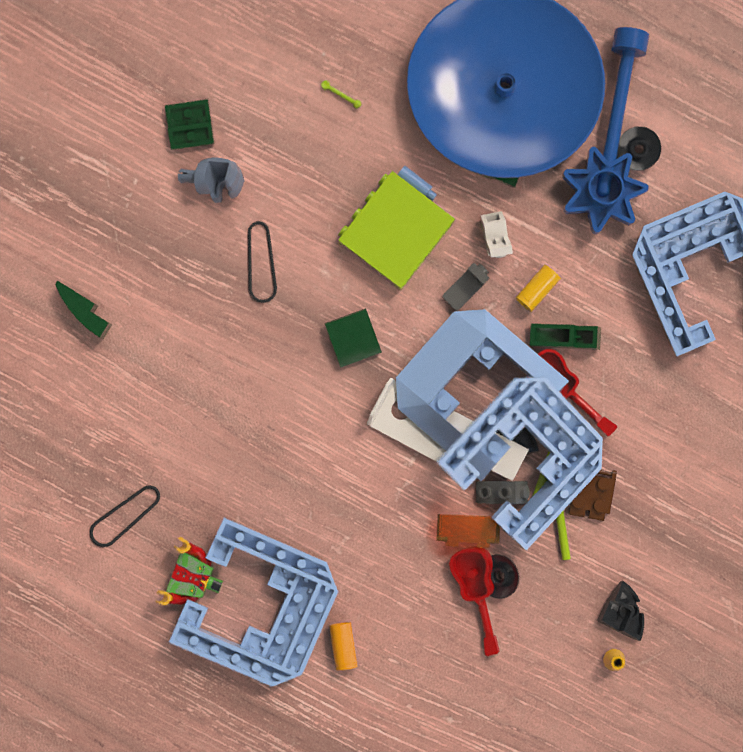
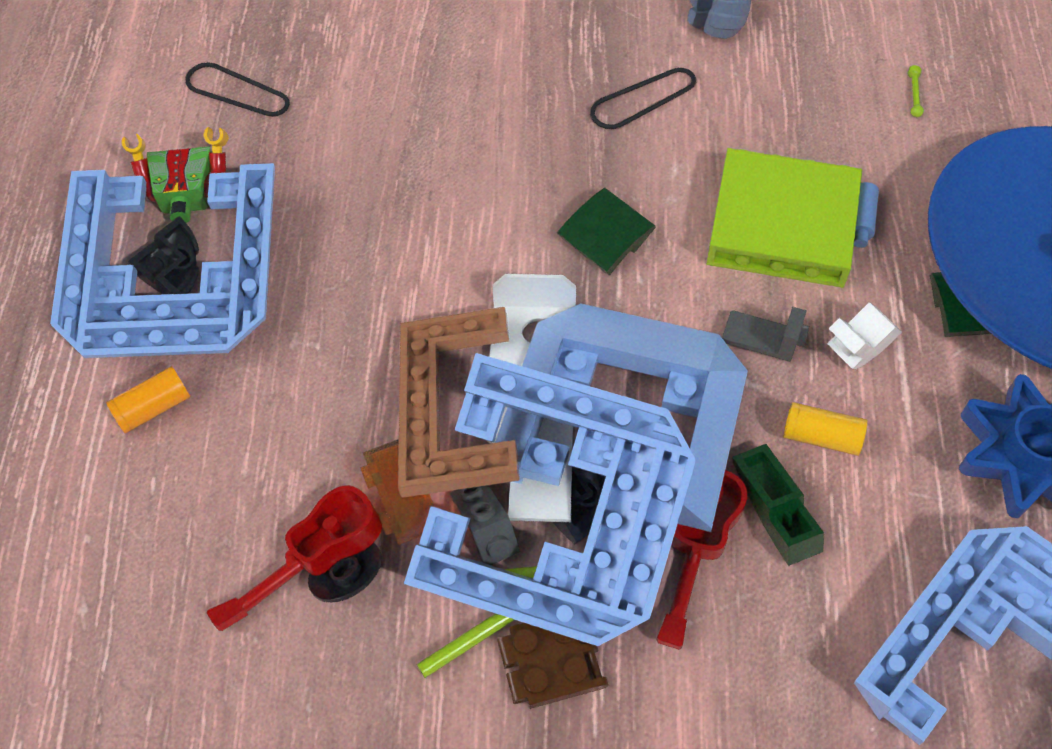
camera: 70 degrees right, 25 degrees down
(248, 603) = (170, 260): none -> black brick
(472, 515) = (420, 462): none -> nougat plate

